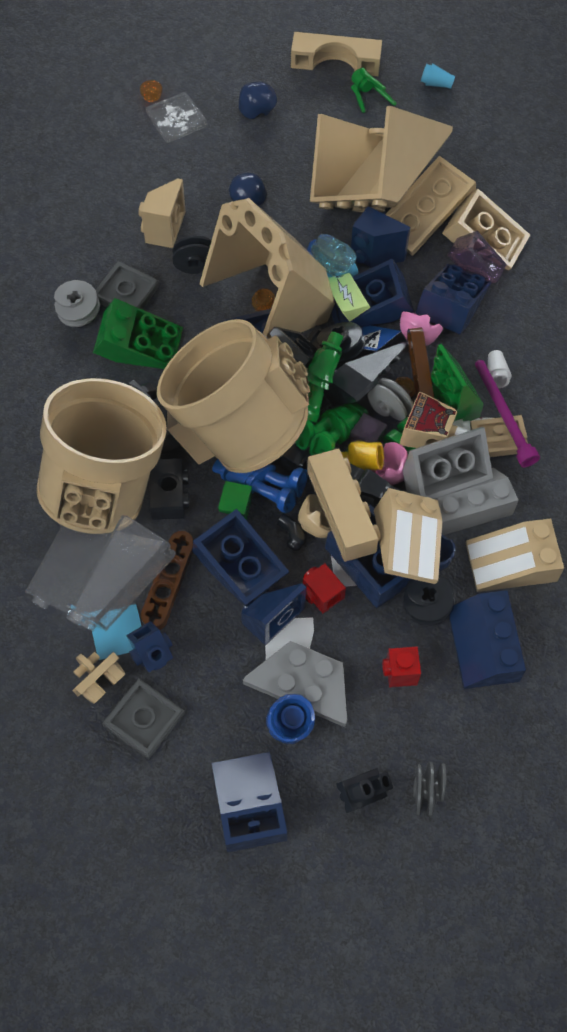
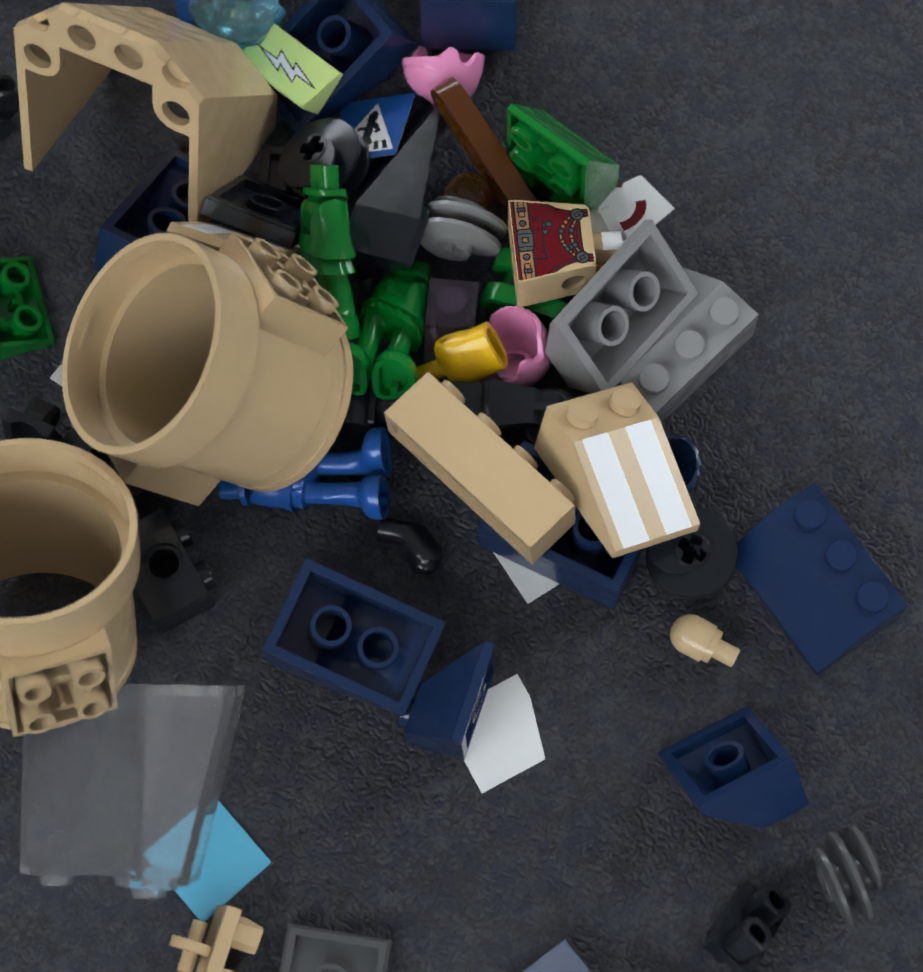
camera: 20 degrees left, 10 degrees up
(149, 647) = (281, 864): dark blue brick -> none
(171, 581) = (252, 729): reddish brown beam -> none
(236, 497) = (289, 535): green panel -> none
(263, 299) = (147, 141): clear orange plate -> none
(290, 718) = (572, 871): blue hair -> none
(305, 673) = (557, 791): light grey wing -> none
(313, 518) = (437, 506): tan hair -> none
(323, 588) = (510, 618): red brick -> none
(399, 713) = (737, 771): none -> dark blue slope
(402, 667) = (706, 692): red brick -> none
(410, 637) = (701, 640): none -> tan cylinder
(498, 437) = (677, 201): tan plate -> none
(499, 368) = (609, 87): white cone -> none
(515, 556) = (794, 410): tan slope -> none
(526, 453) = (730, 221): magenta piece -> none

